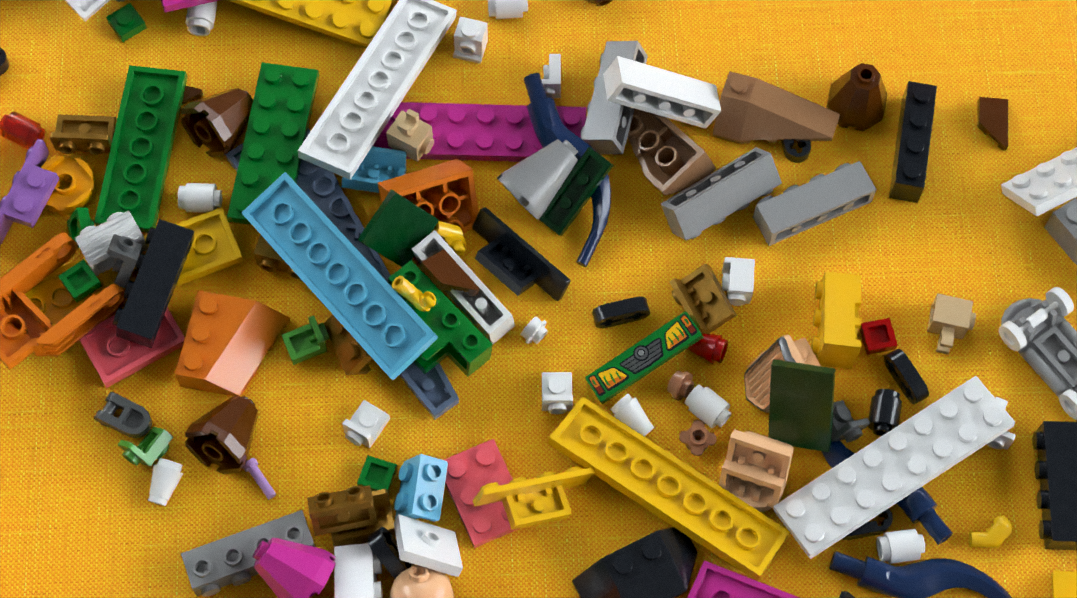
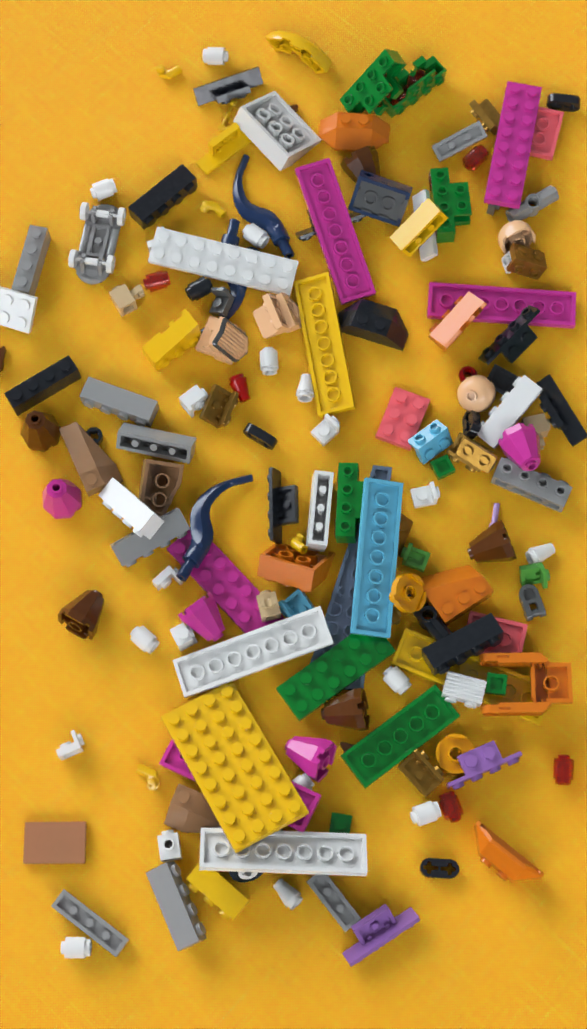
camera: 130 degrees left, 5 degrees up
(44, 102) = (425, 813): none -> white brick
(78, 221) = (469, 720): green plate -> none
(127, 254) = (467, 666): dark grey bracket -> none
(207, 279) = (434, 626): none -> black piece
(216, 45) = (311, 755): none -> dark pink cone
(280, 277) = (399, 593): none -> light orange plate
(397, 228) = (324, 559): dark green tile -> none
(419, 300) = (354, 508): yellow arm -> none
(427, 545) = (453, 409): white plate -> none
(447, 274) = (326, 513): reddish brown tile -> none
(469, 71) = (204, 618): none -> dark pink cone
(534, 330) = (306, 465): white plate -> none
(535, 499) = (386, 386): yellow bracket -> none
(540, 176) = (231, 525): light grey cone -> none
(576, 191) = (220, 507): dark green tile -> none
(644, 357) = (273, 405): tile -> none
(680, 385) = (270, 381): nougat plate -> none
(697, 446) = (287, 359): nougat plate -> none
(753, 52) = (61, 498): none -> dark pink cone
(801, 404) = (235, 313): dark green tile -> none
(878, 336) = (161, 321): red plate -> none
(906, 376) = (171, 295): black beam -> none
(942, 374) = (156, 281): none -> clear red brick

